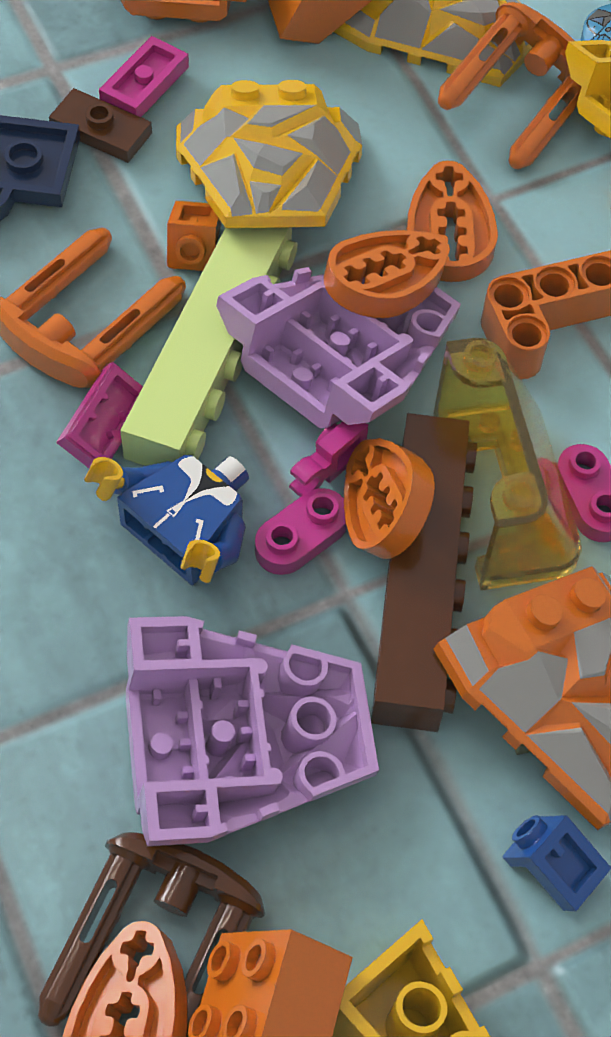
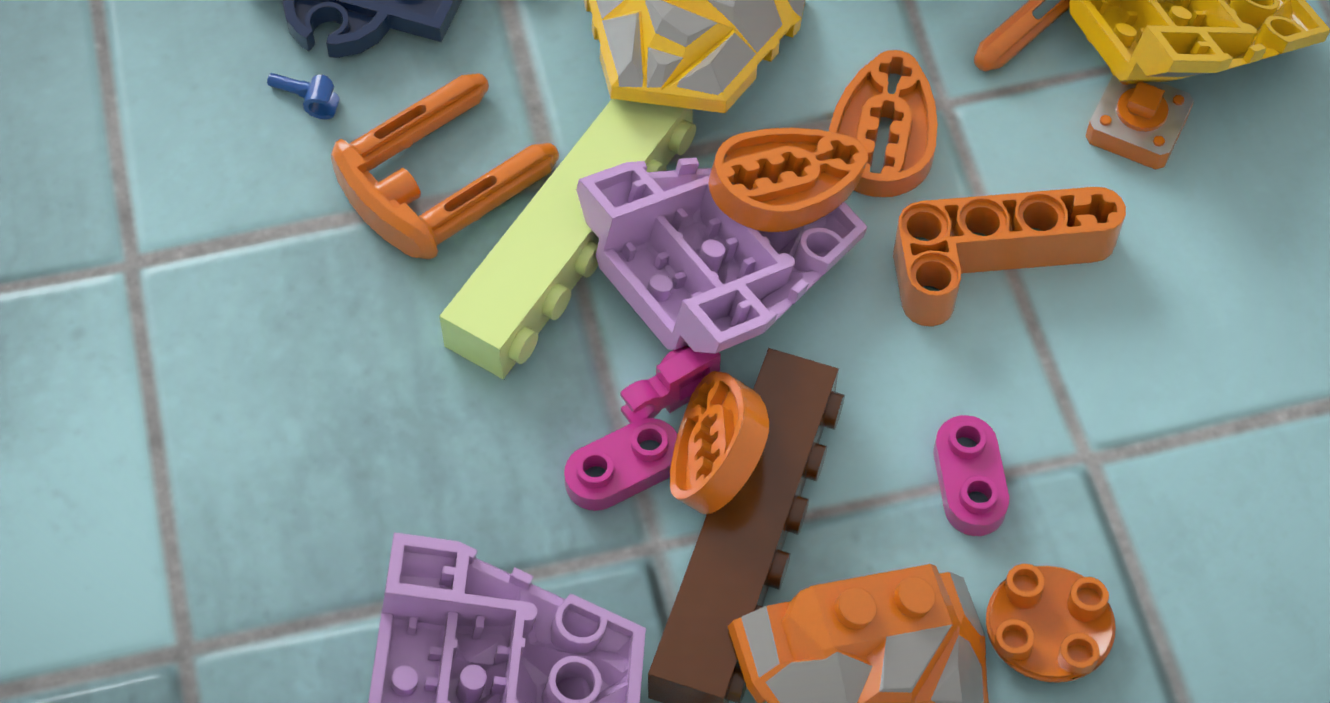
camera: 15 degrees right, 0 degrees up
(99, 418) = (413, 309): dark pink plate -> none
(179, 510) = (487, 417): blue torso -> none
(191, 235) = (576, 96): orange bracket -> none
(531, 512) = (882, 494): clear yellow windscreen -> none

